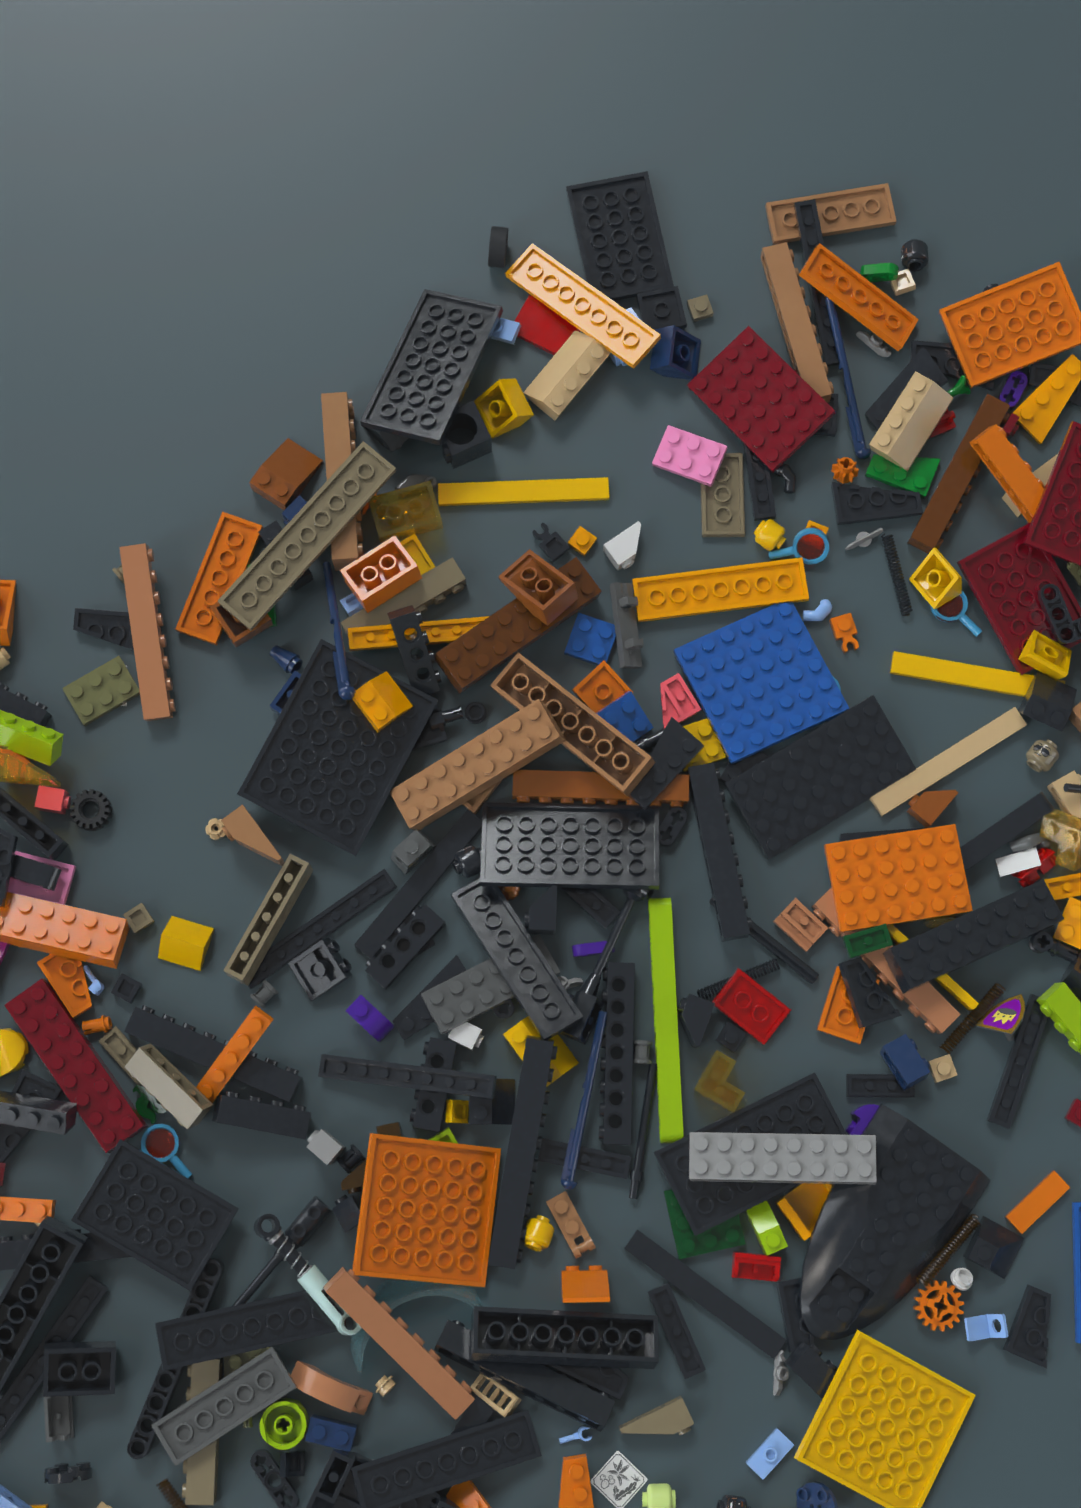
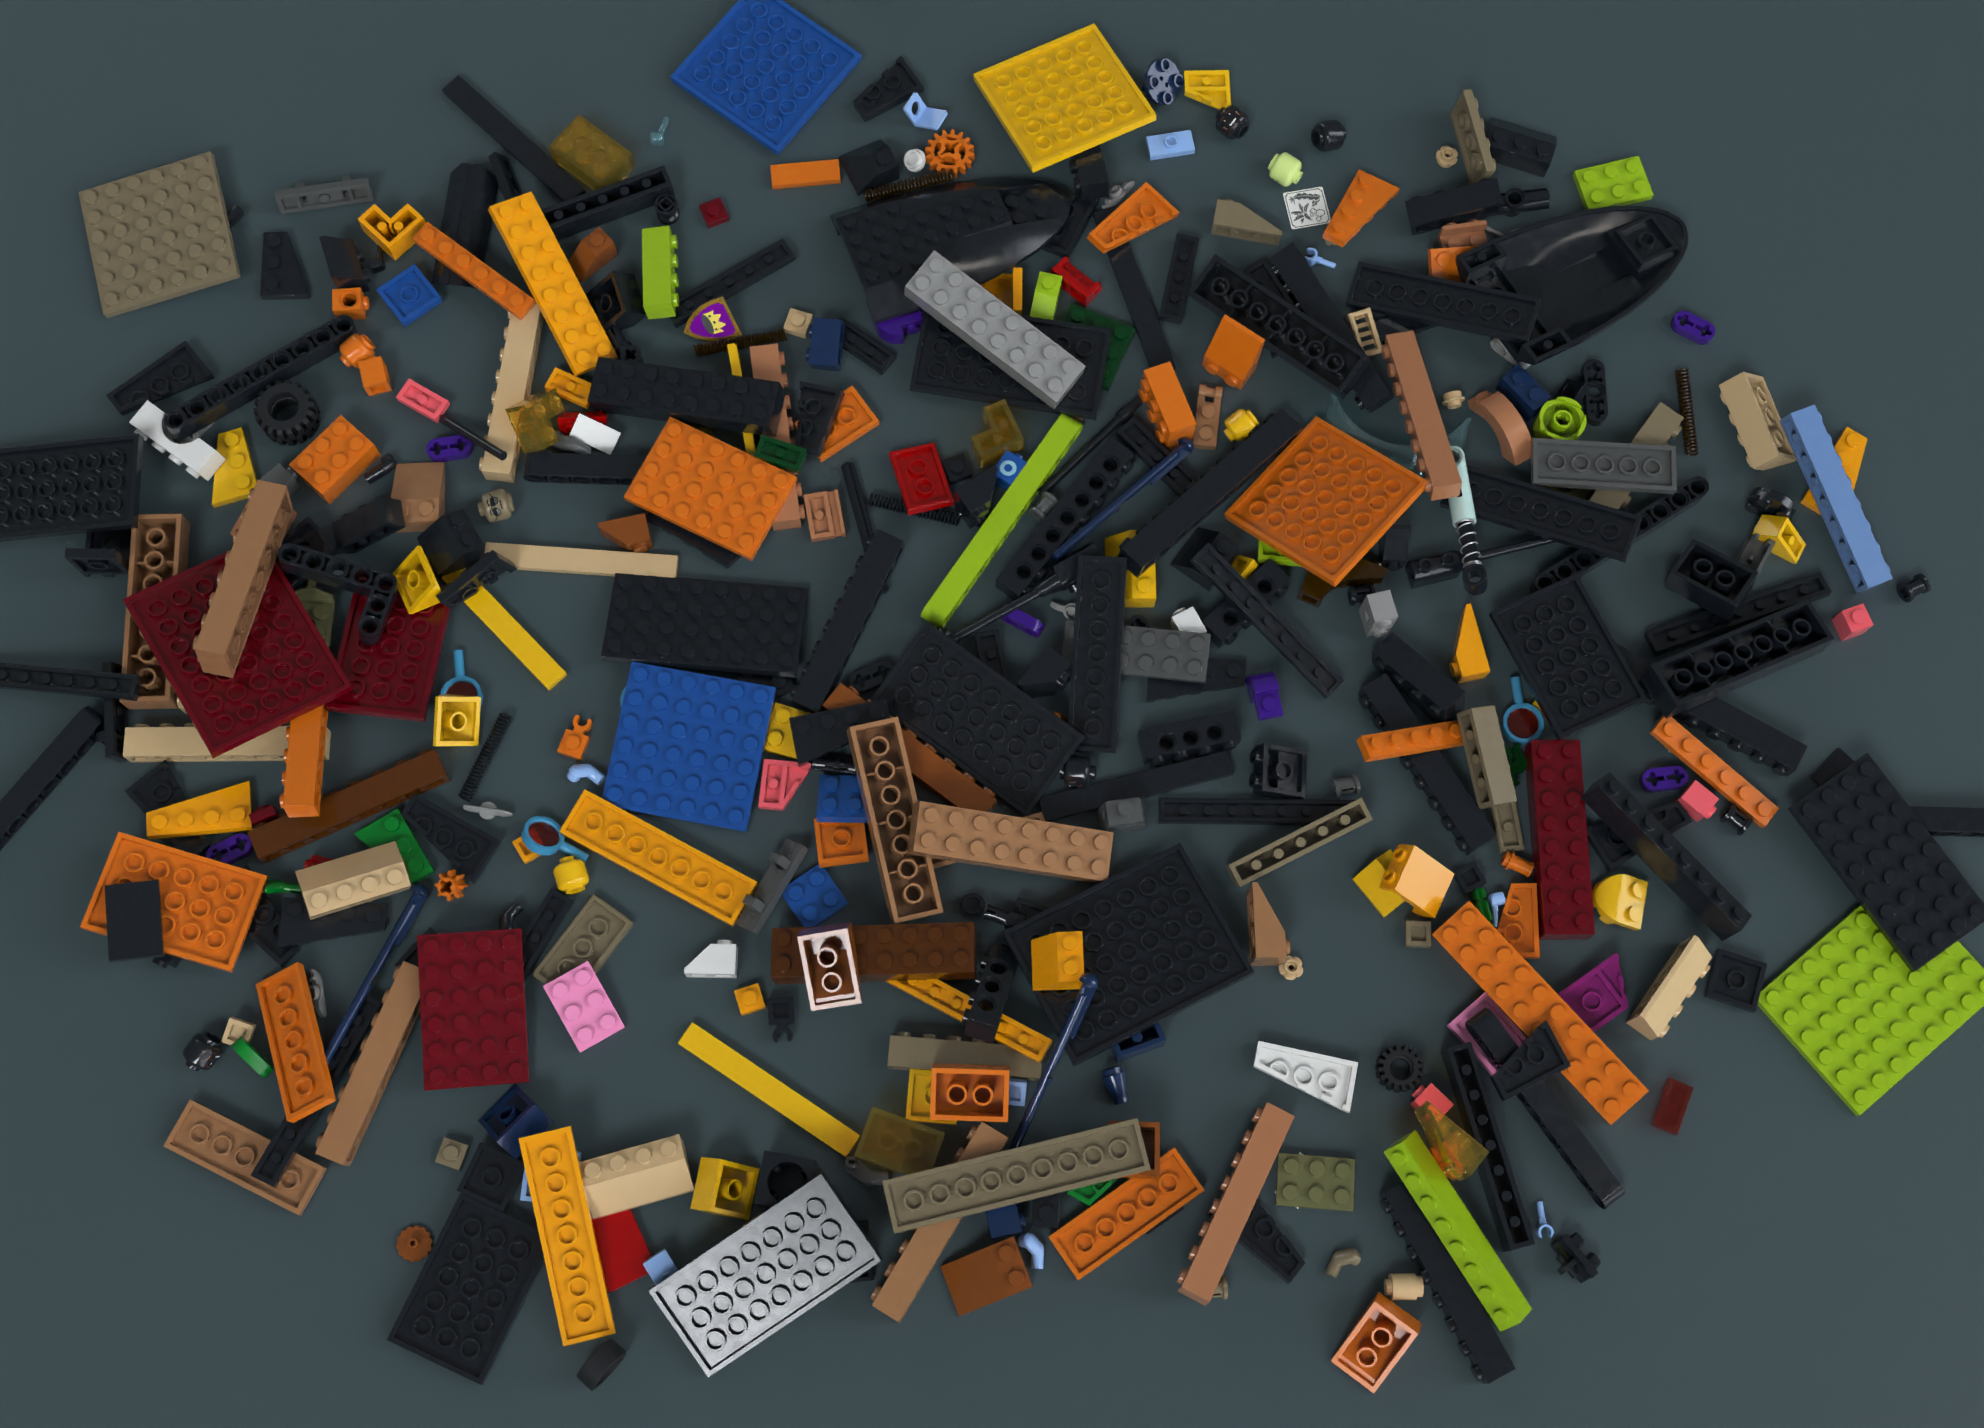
camera: 145 degrees left, 5 degrees down
(27, 1179) = (1663, 773): none -> dark purple beam
(46, 1454) = (1787, 540): none -> yellow slope
(50, 651) = (1342, 1258): none -> dark tan arm
(103, 974) = (1479, 896): none -> green axle
(148, 764) = (1313, 1073): none -> white wing
(163, 952) = (1417, 879): none -> light orange panel
(238, 1170) = (1468, 655): none -> light orange slope
(267, 514) = (1035, 1247): none -> light blue arm
(606, 1203) = (1166, 405): none -> orange brick
(679, 240) = (414, 1243): none -> dark orange piece
(690, 1062) = (1009, 468): none -> blue brick
(749, 1359) = (1134, 217): none -> orange wing
(1011, 681) = (483, 572): none -> black wing
(1027, 290) = (134, 921): none -> black tile

